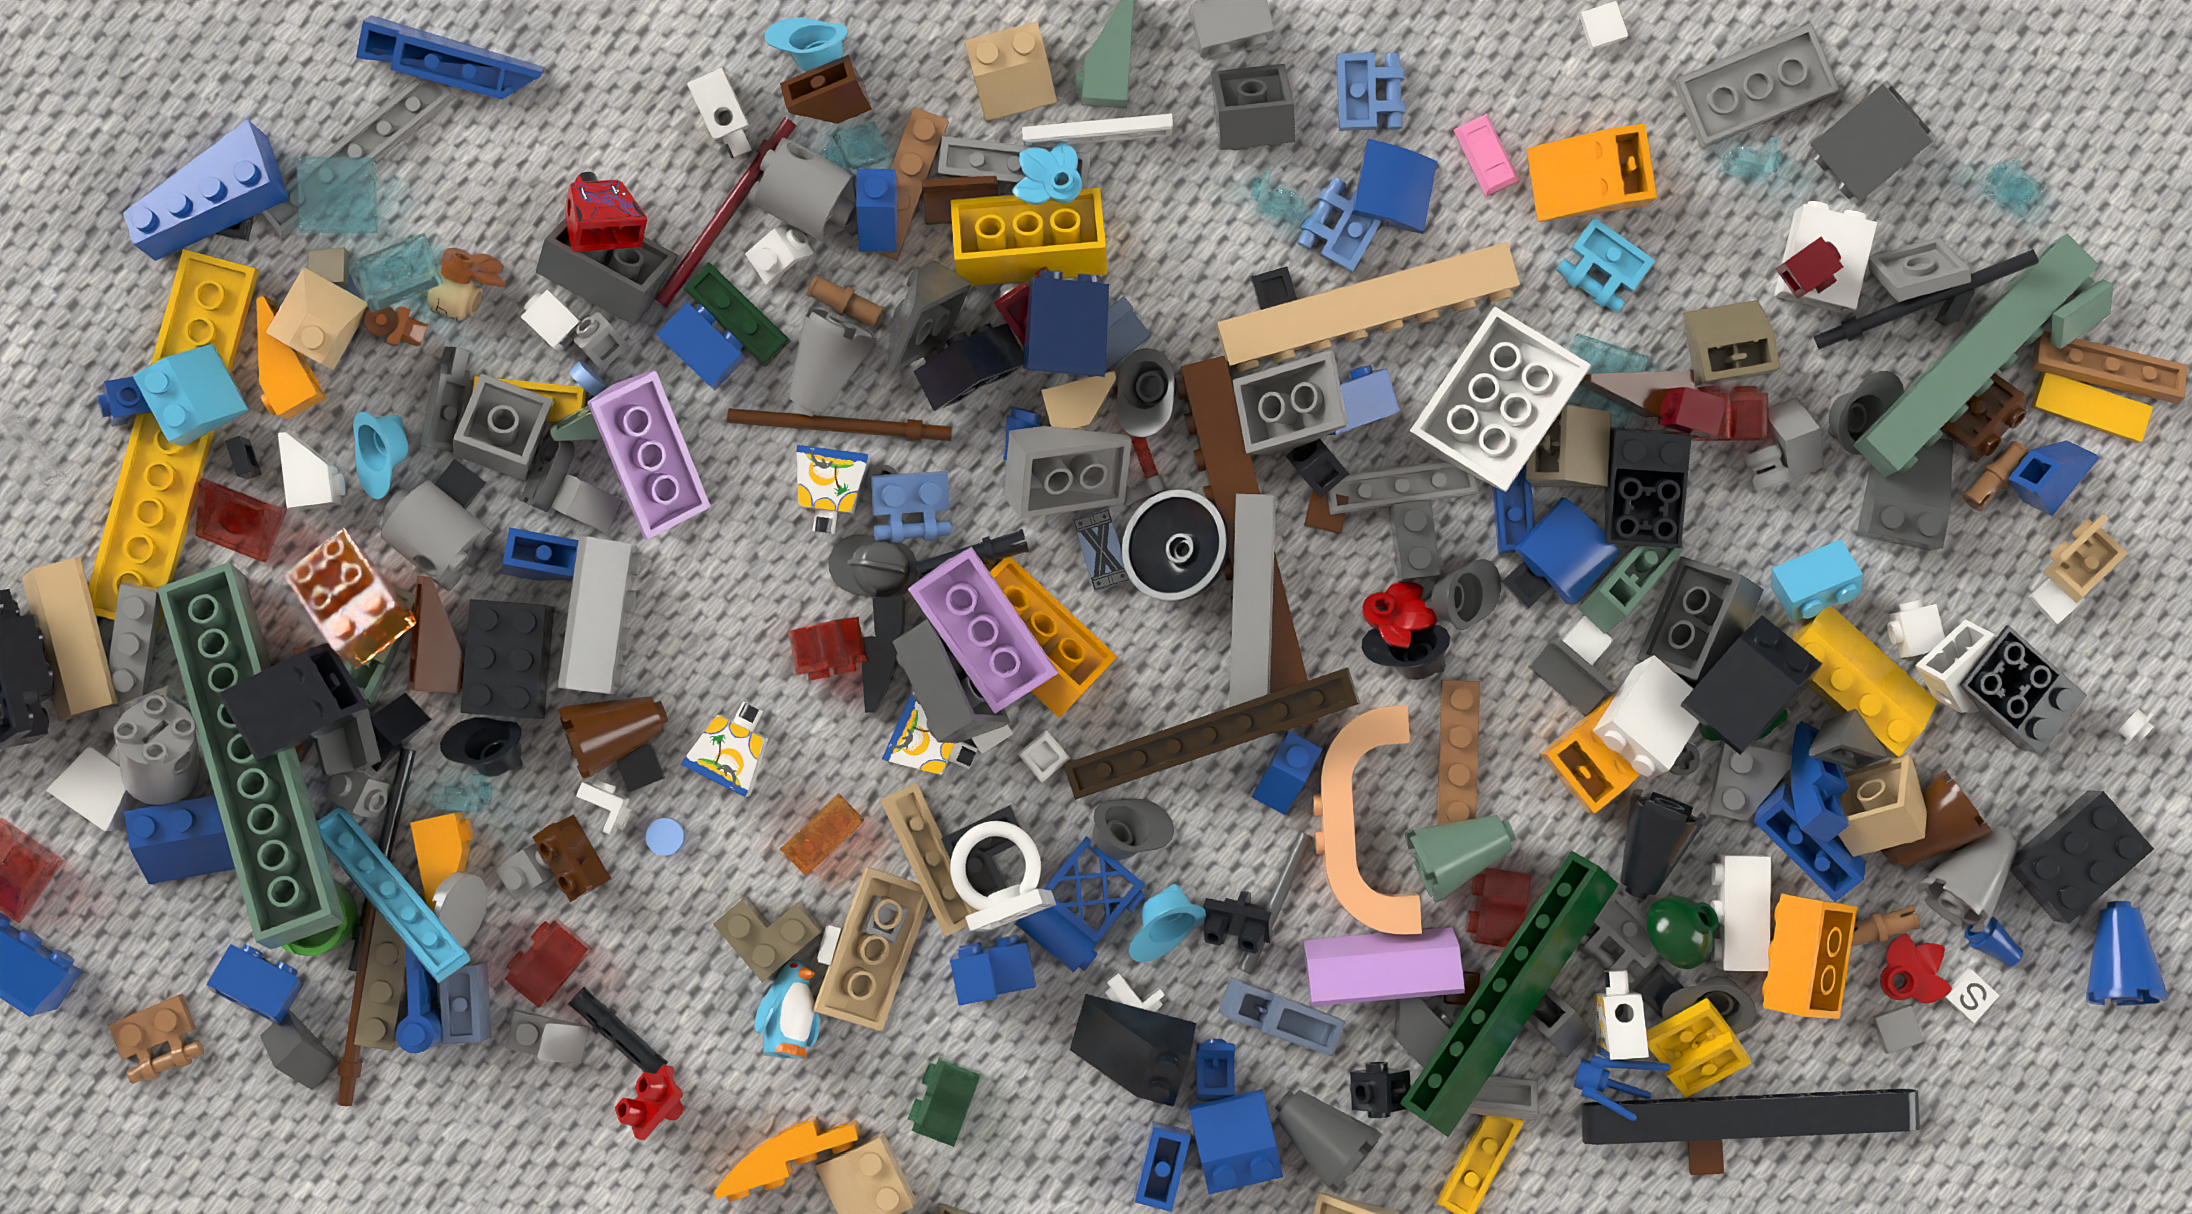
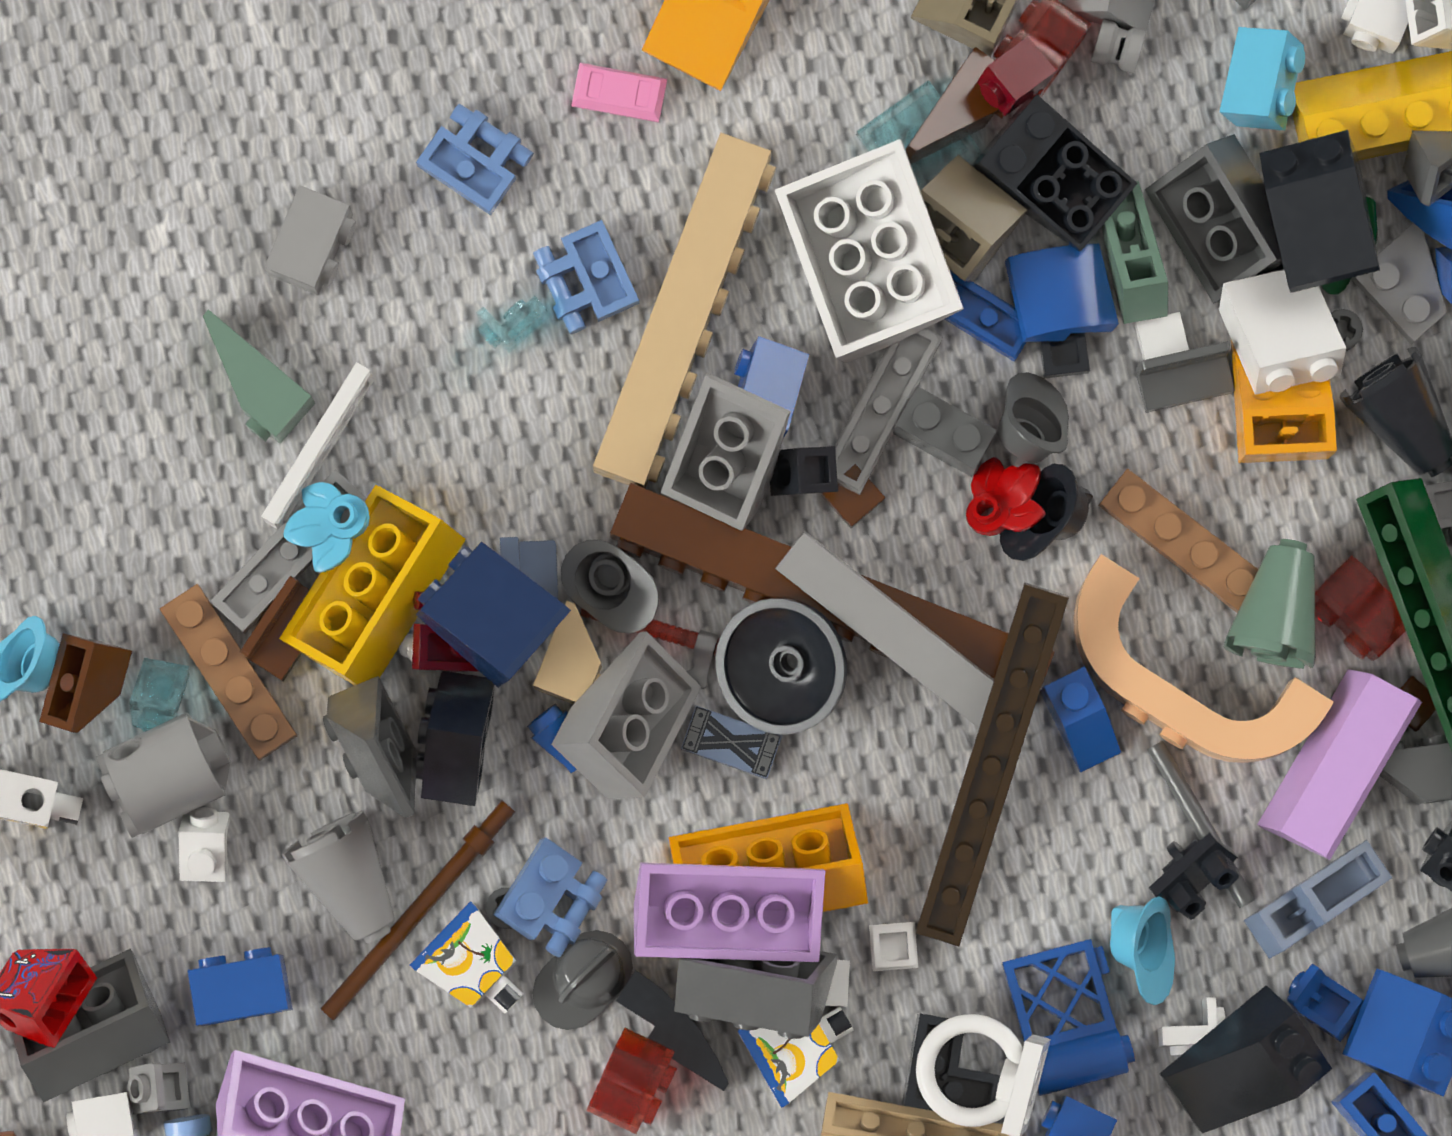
camera: 55 degrees left, 5 degrees down
(723, 215) = (124, 870): dark red bar -> none
(737, 314) = (233, 932): dark green tile -> none
(845, 301) = (300, 815): medium nougat pin -> none
(877, 210) = (237, 716): blue slope -> none
(988, 551) = (651, 850): black pin -> none
(1011, 71) = (197, 488): tan slope -> none
(1130, 828) = (1026, 912): dark grey piece -> none
(1253, 107) = (407, 279): dark grey slope -> none
(1273, 288) = (598, 389): black tile -> none
(1395, 186) = (585, 200): blue slope -> none
(1611, 255) = (807, 44): medium azure plate -> none

